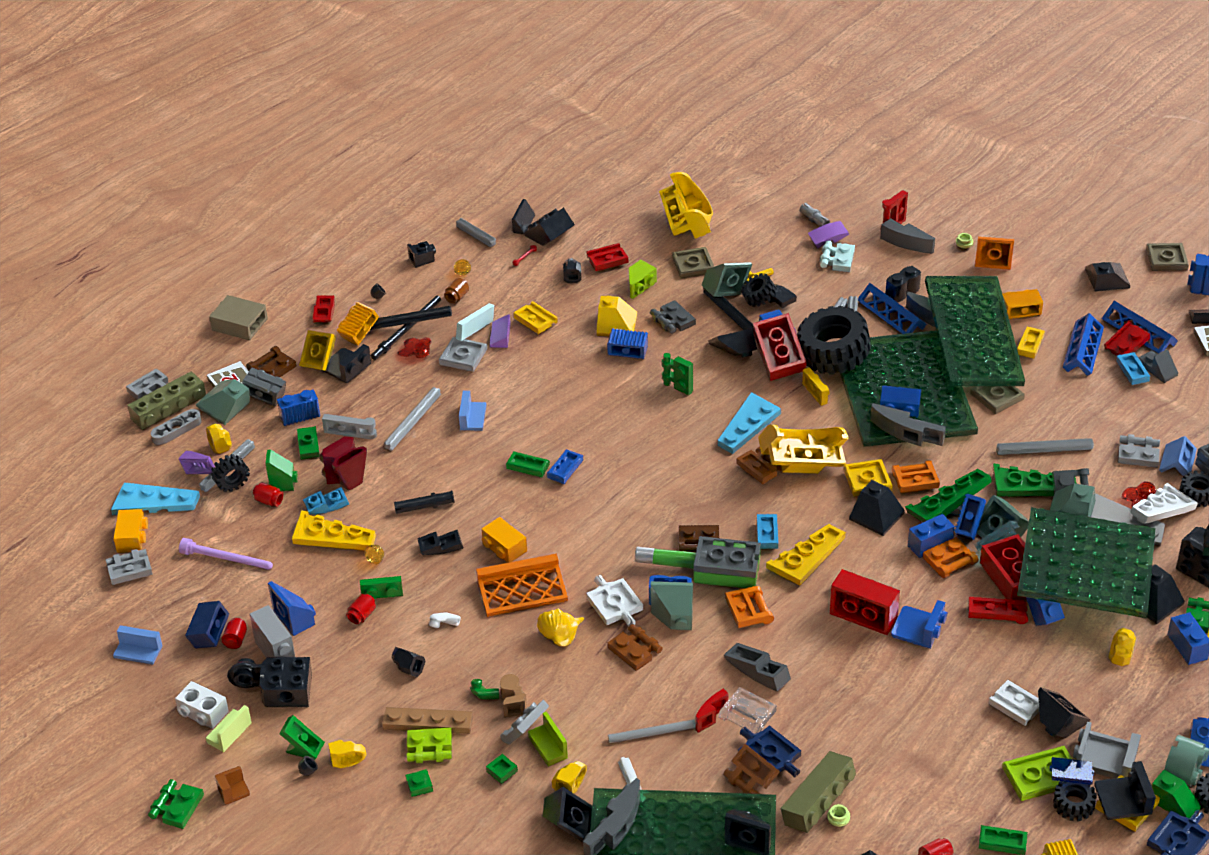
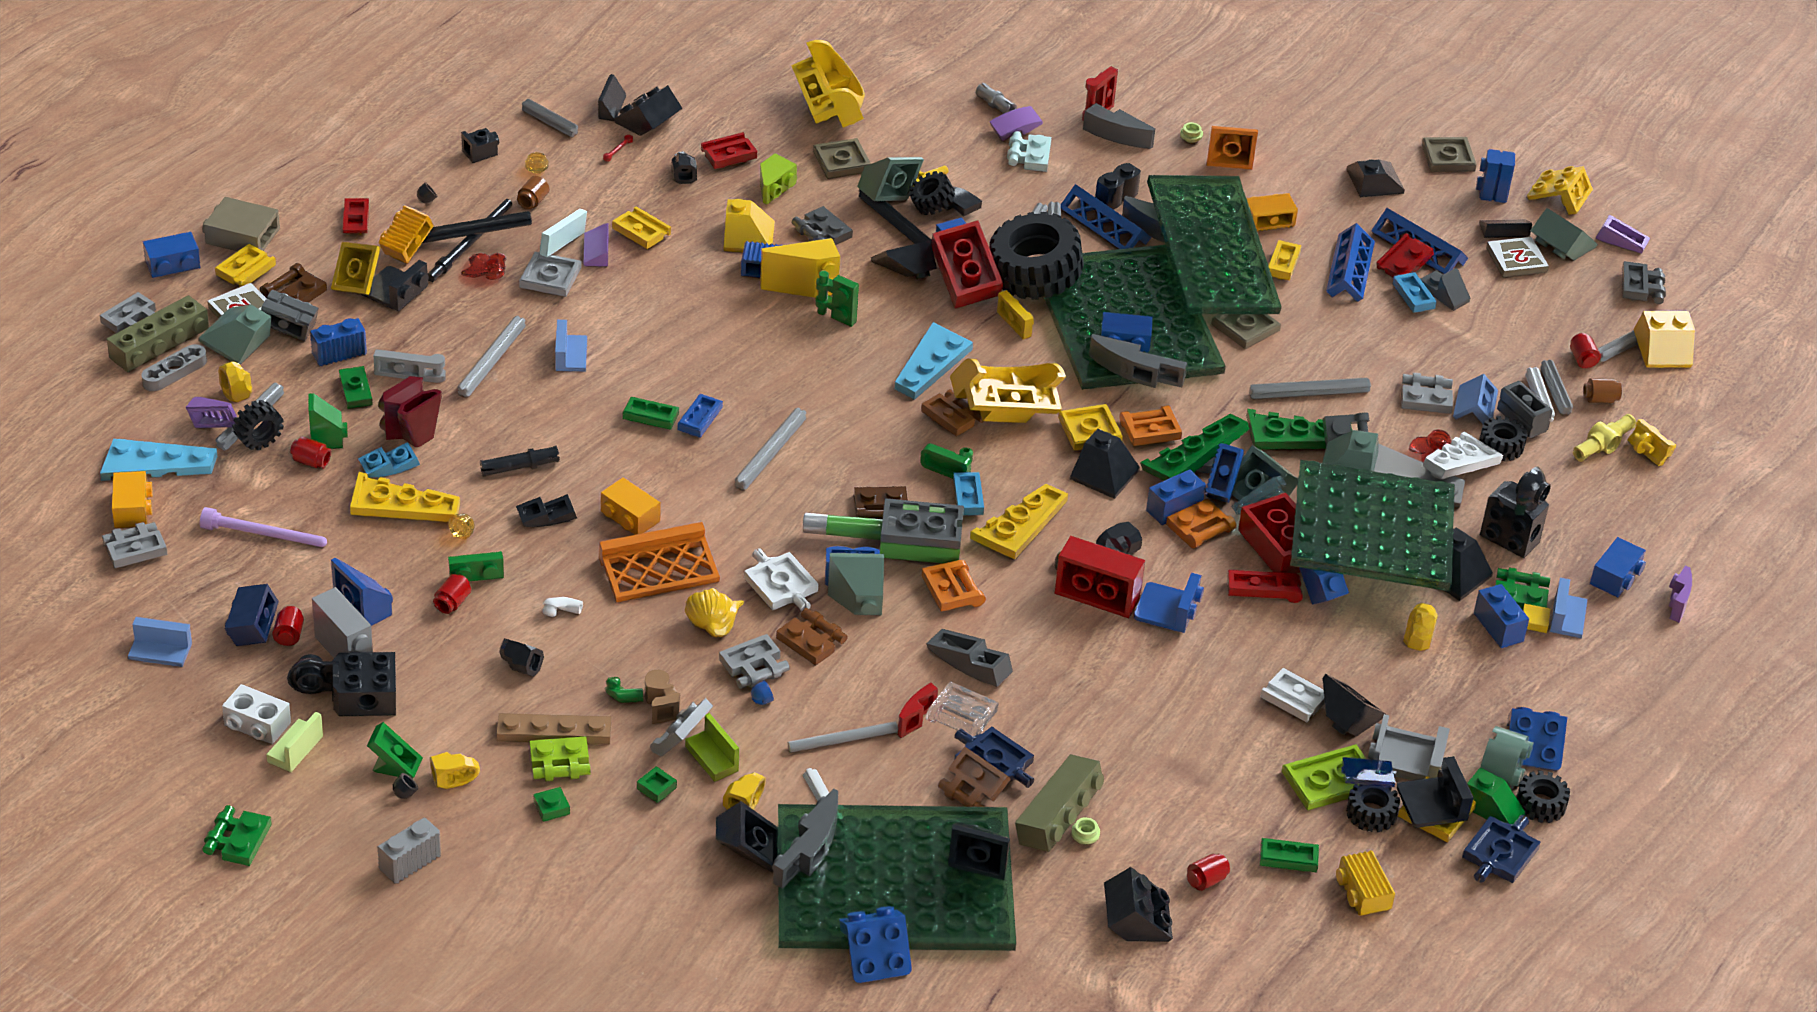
camera: 10 degrees left, 0 degrees up
(184, 339) = (171, 254): none -> blue brick
(232, 785) = (307, 811): dark orange panel -> none
(237, 348) = (245, 266): none -> yellow plate
(304, 820) = (409, 850): none -> light grey brick
(585, 662) = (750, 655): none -> light grey plate
(590, 694) = (762, 693): none -> blue hinge
(616, 494) = (770, 449): none -> light grey axle
(647, 348) = (797, 266): none -> yellow slope
(751, 505) = (946, 461): none -> green piece
(883, 570) = (1122, 538): none -> black rock

